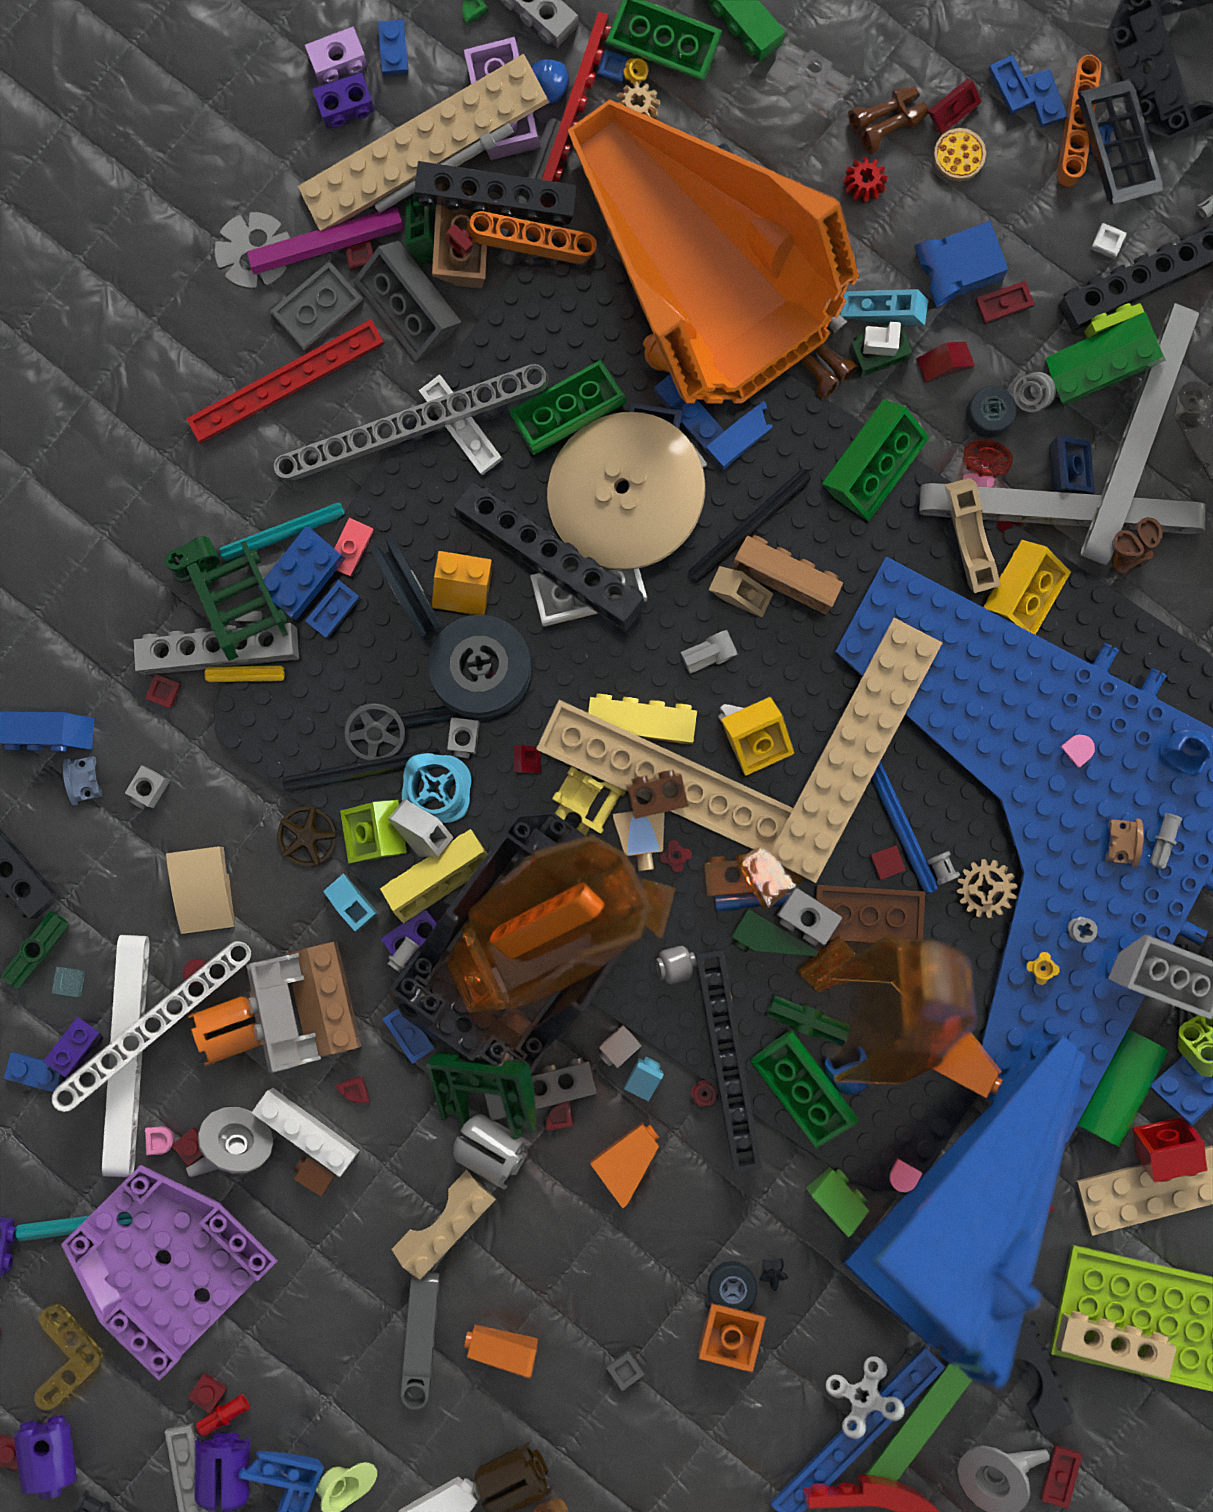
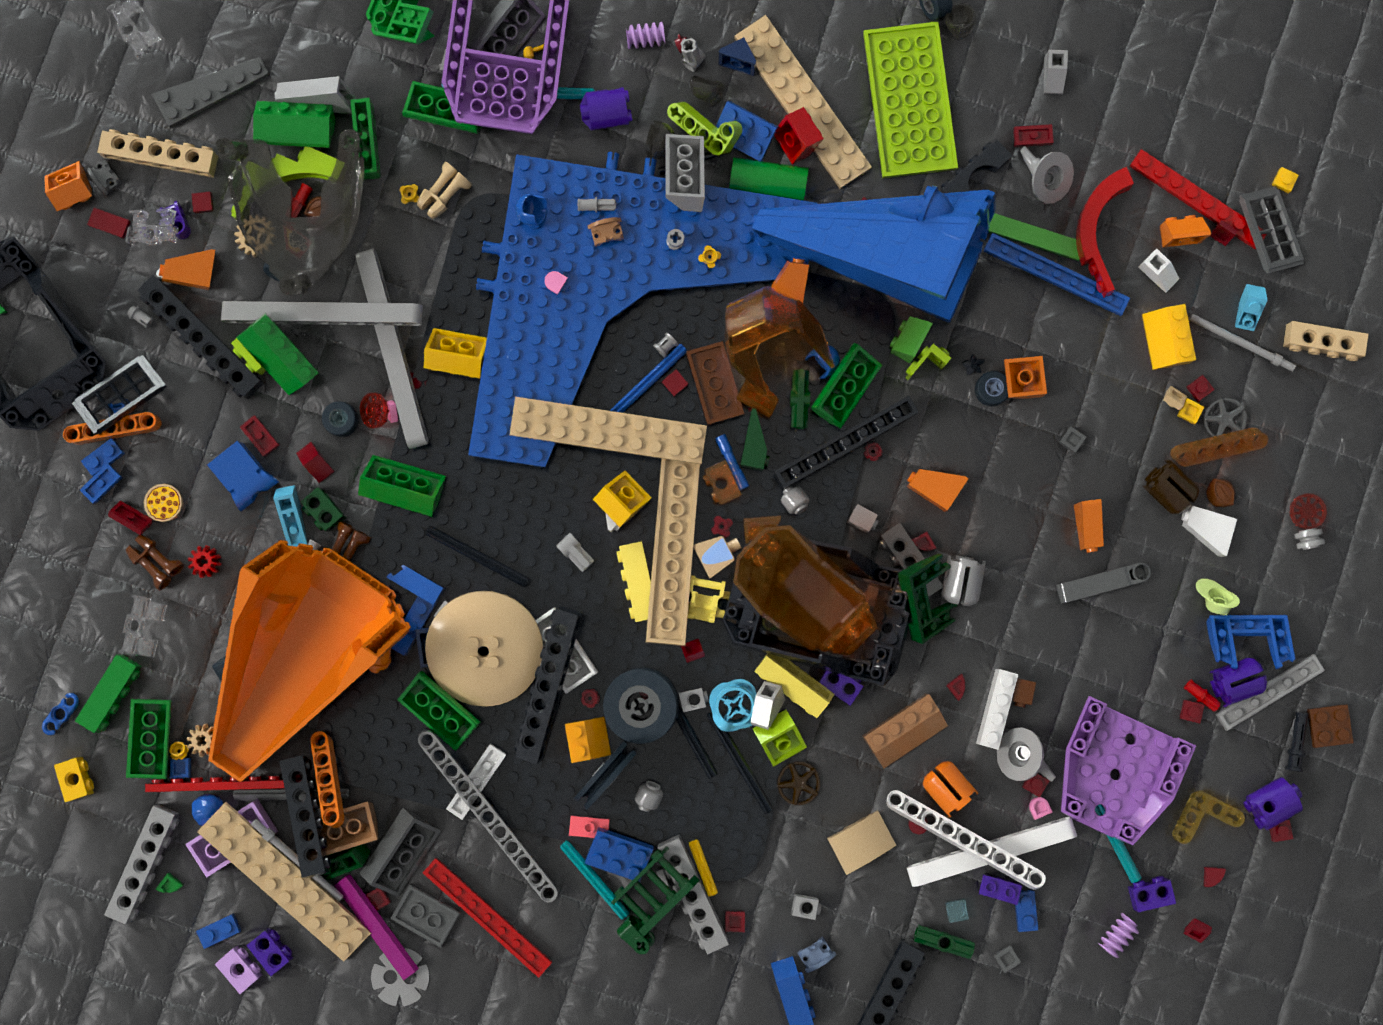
camera: 110 degrees left, 0 degrees up
(274, 1013) = (928, 757): light grey bracket -> none
(332, 609) = (637, 822): blue plate -> none
(350, 903) = (833, 736): medium azure slope -> none
(360, 636) = (649, 796): none -> light grey head
(374, 731) = (711, 762): dark grey wheel -> none
(403, 954) = (855, 685): light grey pin -> none
(410, 1038) = (909, 660): blue plate -> none
(459, 240) = (347, 828): dark red plate -> none
(466, 1203) = (1004, 583): tan arch -> none
(514, 598) = (595, 698): none -> dark red plate
(546, 921) = (799, 595): orange beam -> none
(644, 1078) = (877, 494): medium azure slope -> none
(658, 802) = (691, 550): reddish brown brick -> none
(741, 591) = (525, 545): tan slope -> none
(767, 876) = (714, 459): clear orange wing -> none
(787, 574) = (503, 517): medium nougat slope -> none
(802, 1228) = (938, 356): none -> lime bracket
(824, 922) = (724, 431): light grey brick -> none
(854, 1394) = (1031, 285): white gear -> none
(882, 340) = (316, 509): white panel -> none
(903, 1176) = (879, 301): bright pink tile -> none
(970, 533) = (433, 402): tan arch -> none
(998, 887) = (660, 315): tan gear -> none
(1023, 396) = (323, 399): light grey wheel -> none
(1071, 465) = (359, 351): dark blue slope -> none
(1108, 241) = (191, 379): white tile -> none
(1133, 550) = (406, 293): reddish brown piece -> none
(1155, 1362) = (938, 99): tan brick -> none

